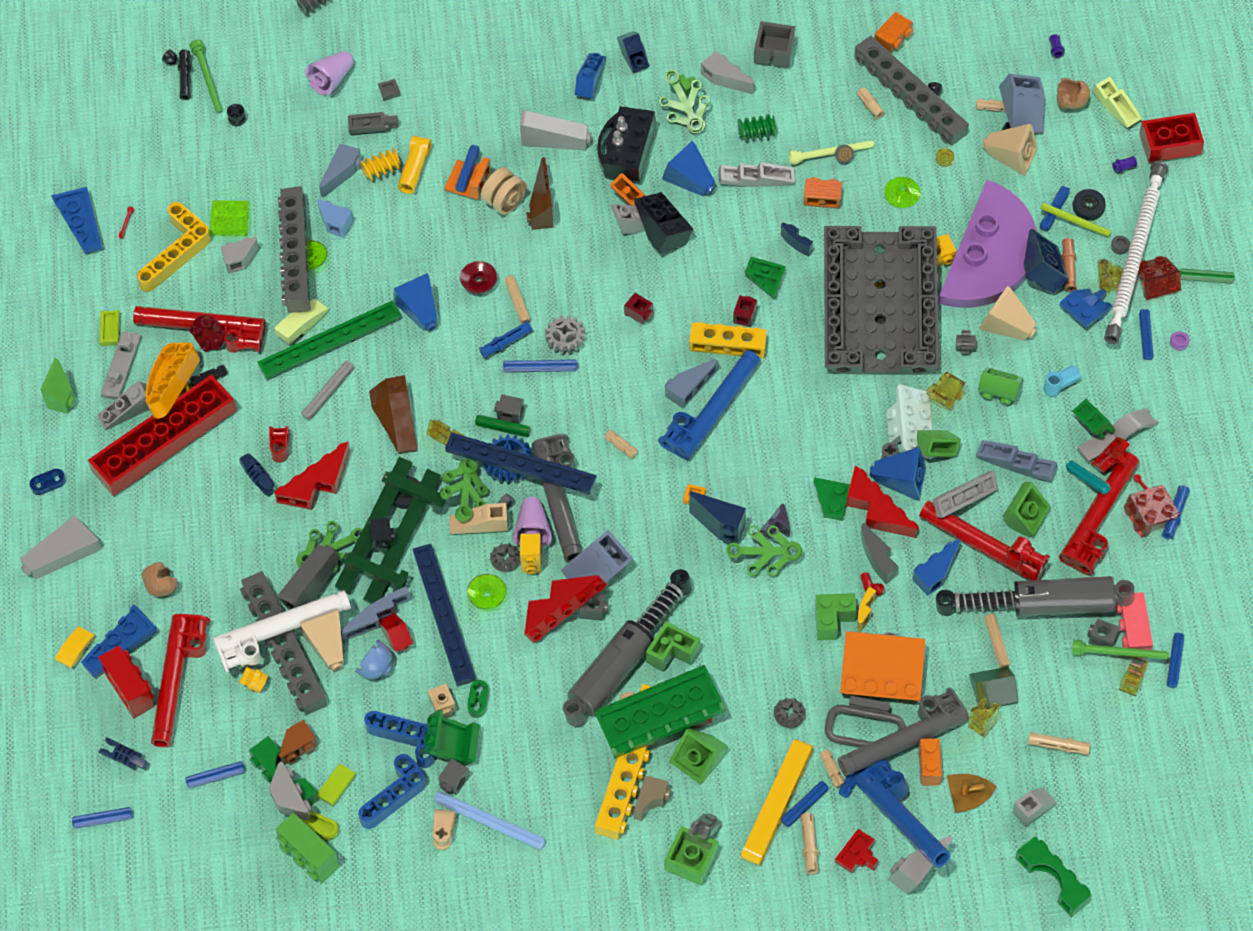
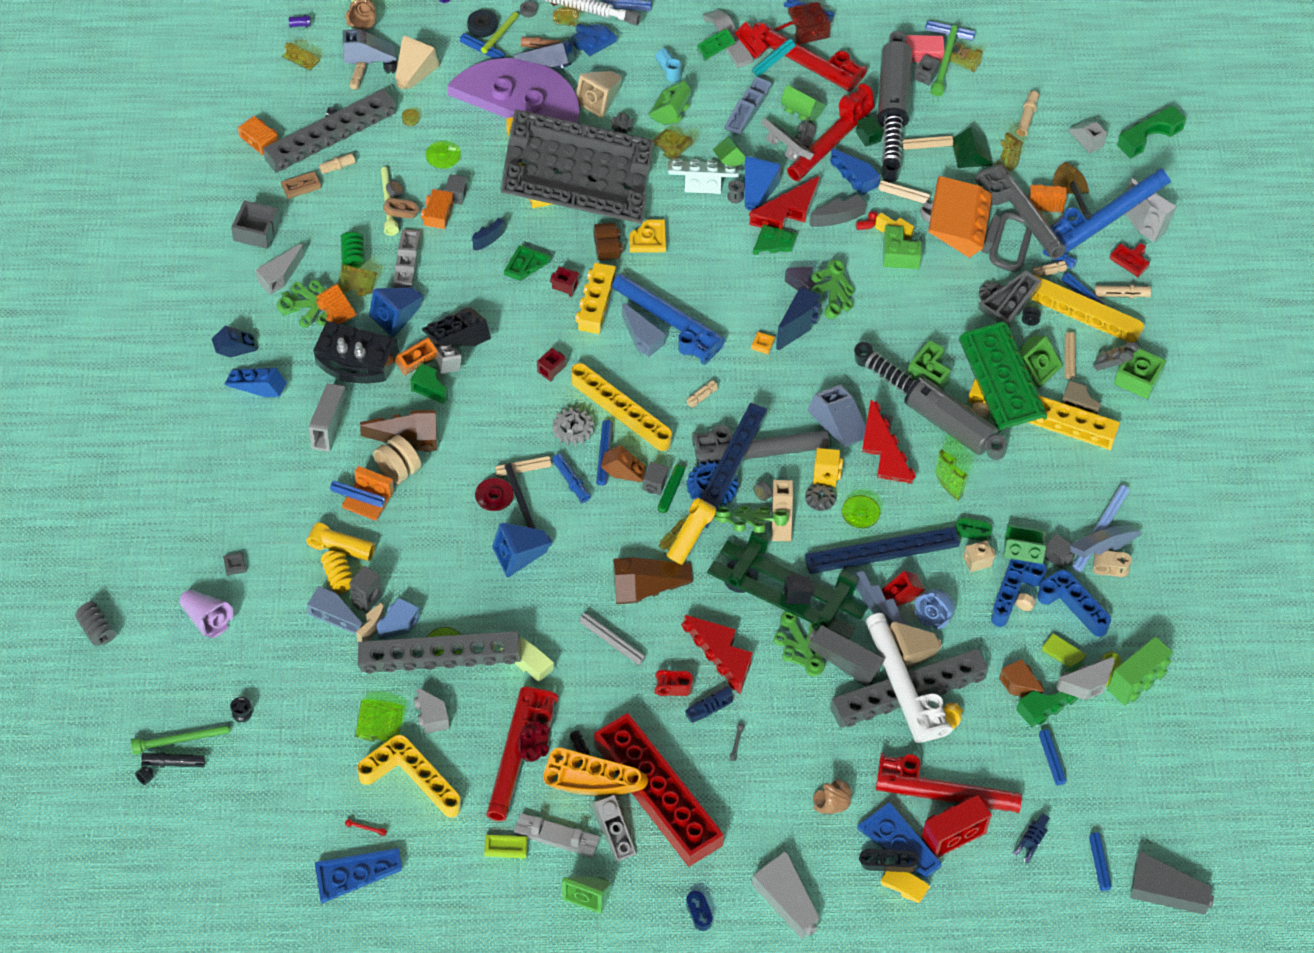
camera: 90 degrees left, 5 degrees down
(73, 875) = (1168, 887): none -> dark grey slope
(97, 637) = (894, 867): none -> black beam
(206, 499) = (740, 727): none -> dark grey hinge
(329, 339) = (552, 634): green plate -> none
(334, 197) = (367, 631): none -> tan slope
(358, 185) = (365, 589): none -> dark grey brick
(371, 122) = (278, 581): dark grey hinge -> none
(389, 745) = (1025, 602): none -> tan tile
(433, 432) = (699, 515): none -> yellow piece
(469, 822) = (1103, 540): none -> sand blue slope
(476, 299) = (519, 496): none -> black bar
(522, 379) = (623, 465): none -> dark orange slope
(532, 521) = (789, 466): lavender cone -> none
(533, 665) = (950, 476): none -> clear neon green slope
(591, 380) = (621, 407): none -> yellow beam
(602, 210) = (426, 383): none -> green arch
(680, 120) = (335, 305): none -> orange brick
(713, 789) = (1070, 355): none -> tan axle
(718, 135) = (356, 279): none -> clear yellow cylinder
(759, 748) = (1031, 316): none -> black wheel
(768, 721) = (1010, 301): none -> dark grey wedge
(803, 342) = (606, 241): none -> reddish brown brick
(816, 381) = (648, 237): none -> yellow plate
(817, 160) = (400, 208): none -> medium nougat plate
(841, 90) = (301, 187): none -> medium nougat tile
(852, 205) = (458, 186): none -> dark grey brick
(910, 791) = (1080, 200): none -> black bar
(921, 615) = (904, 192): none -> axle
(990, 517) = (805, 130): none -> dark grey hinge
(1000, 578) = (869, 131): none -> dark green brick
(1008, 53) = (300, 57): none -> clear yellow hinge

